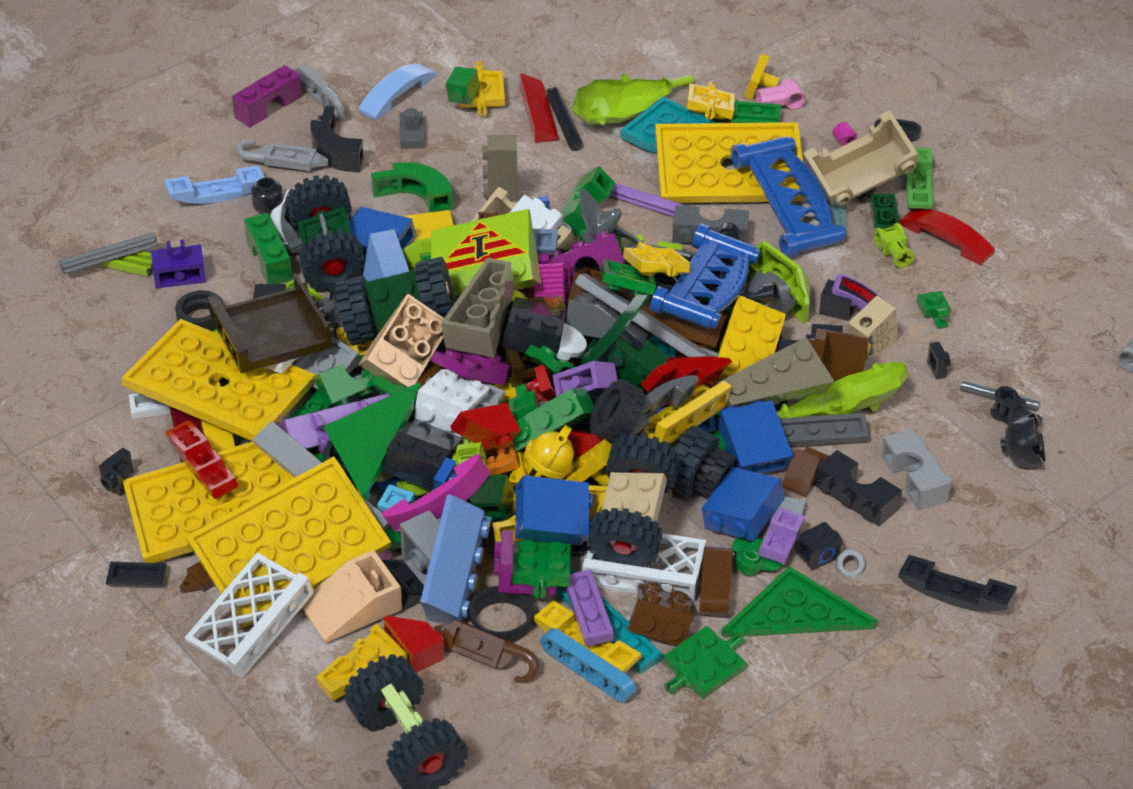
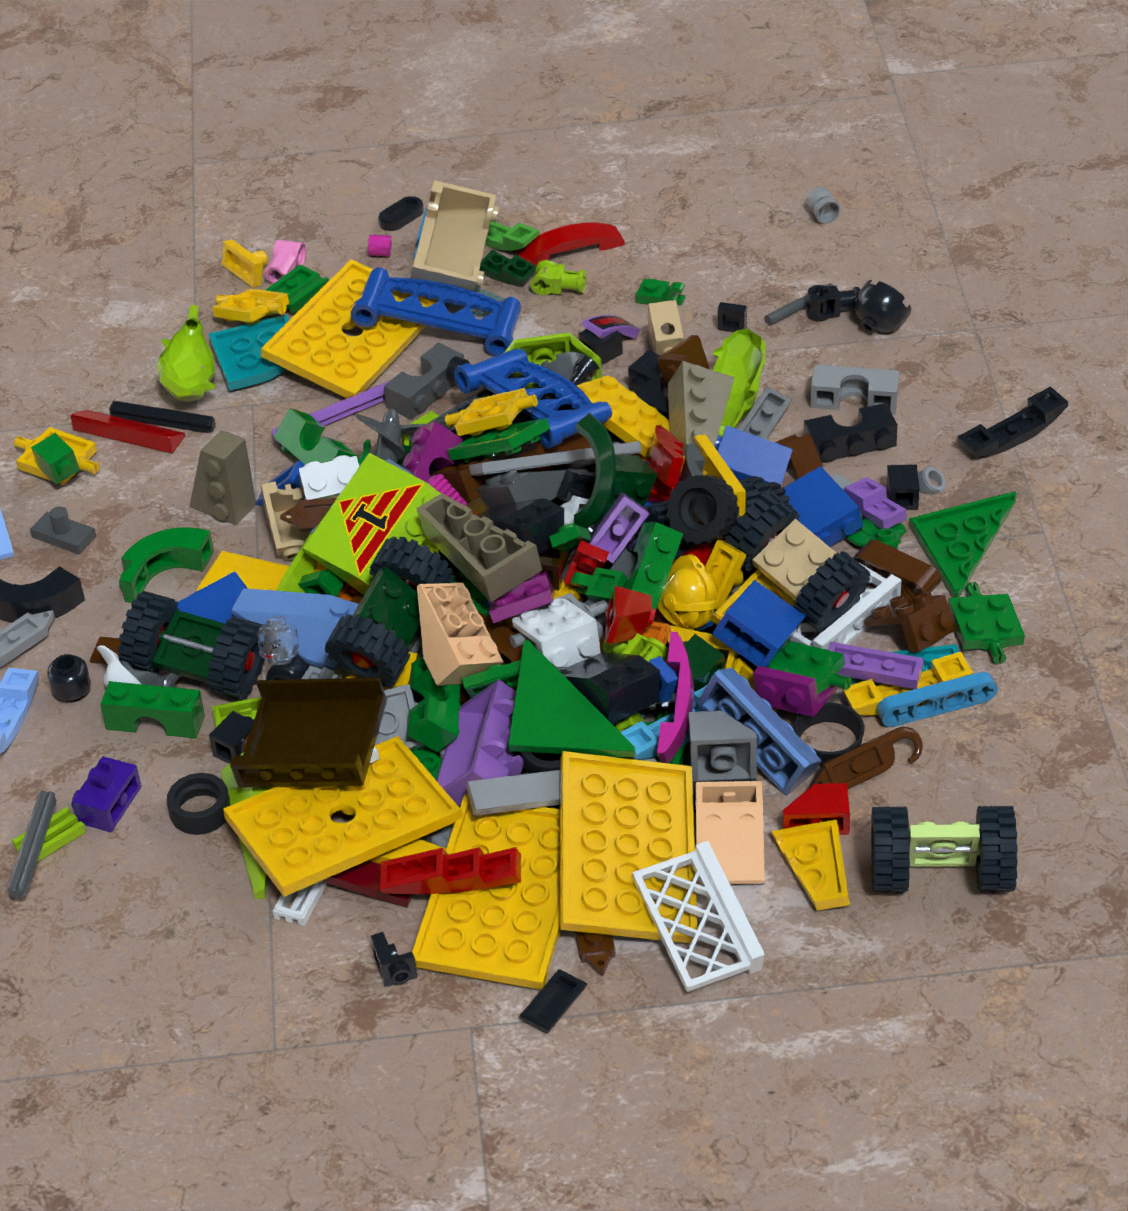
camera: 55 degrees left, 0 degrees up
(353, 265) = (278, 641): none -> clear head

